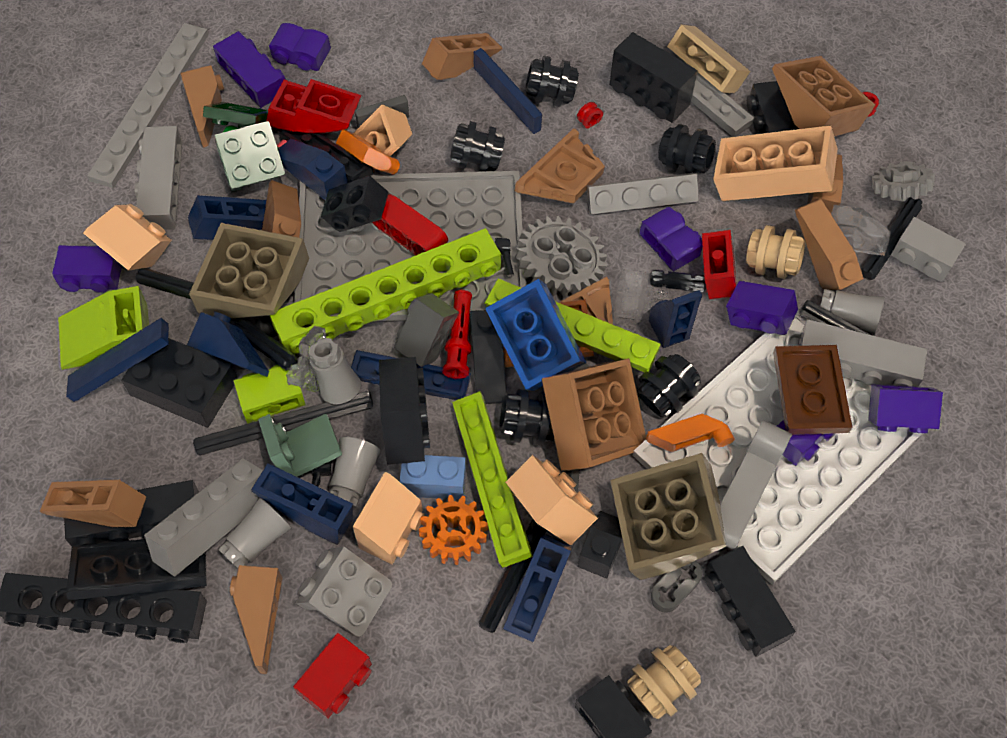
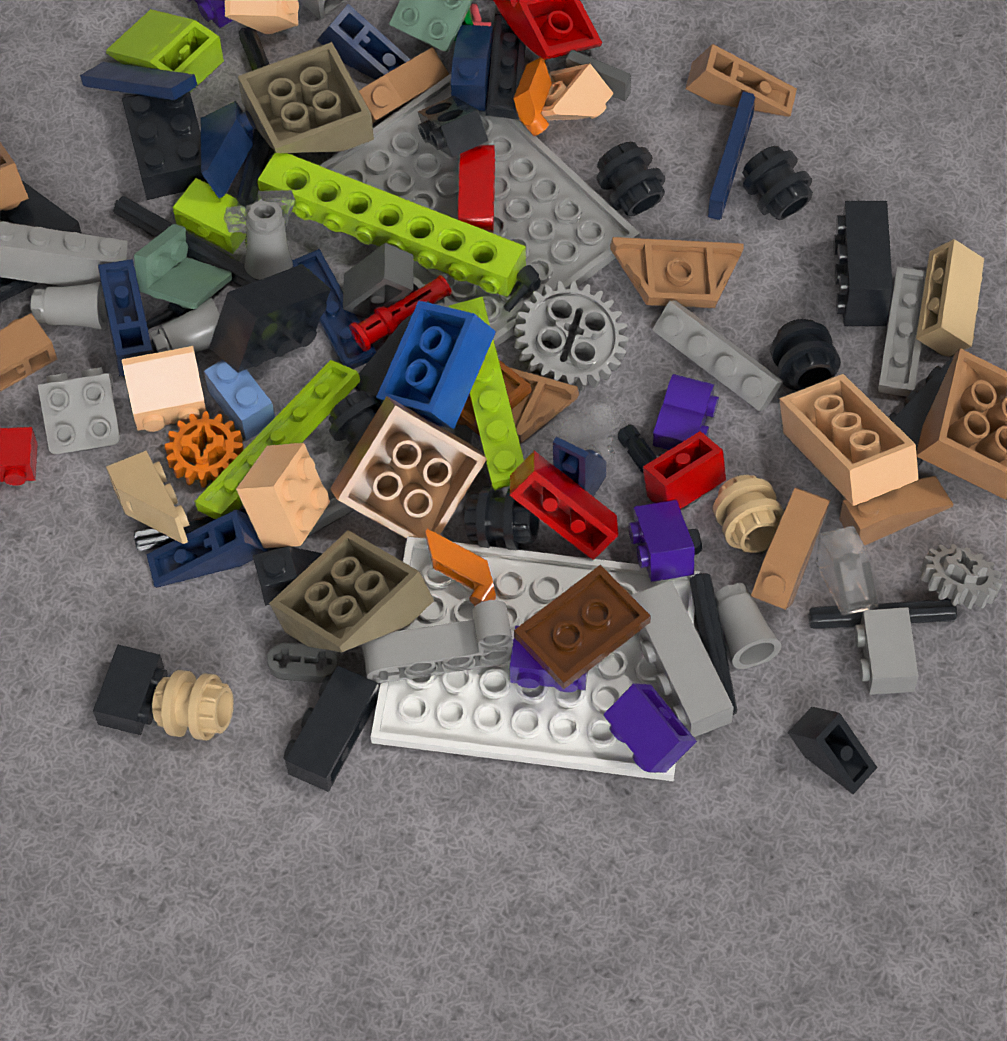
camera: 55 degrees right, 0 degrees up
(462, 594) = (146, 498): none -> tan slope
(589, 114) = (773, 245): red bush -> none
(699, 340) = (563, 505): none -> red brick
(970, 323) = (833, 747): none -> black slope

